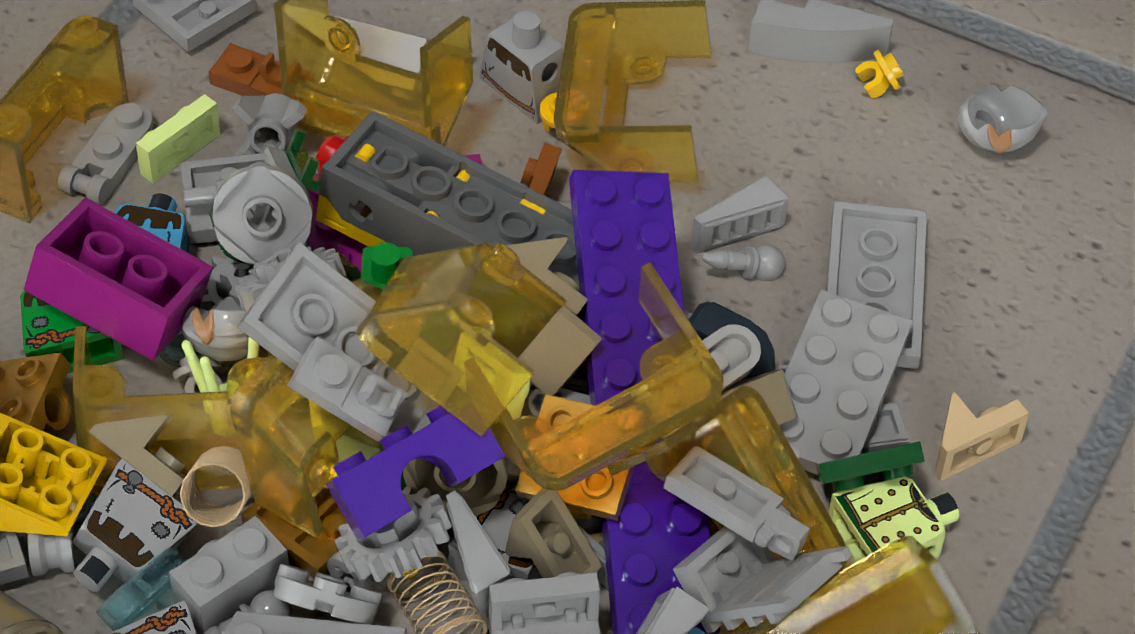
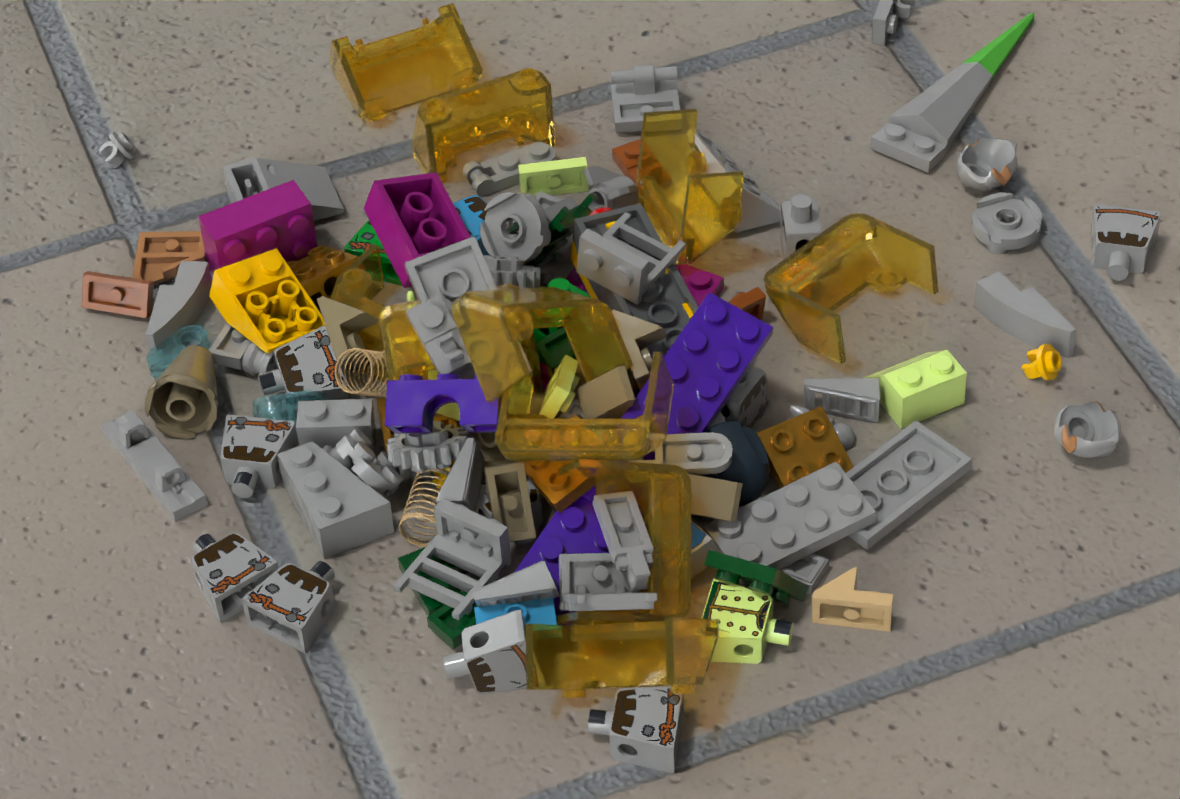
camera: 45 degrees right, 5 degrees down
(433, 193) = (621, 265): none -> light grey plate
(768, 294) = (803, 446): none -> pearl gold plate
(796, 154) = (921, 387): none -> yellowish green slope

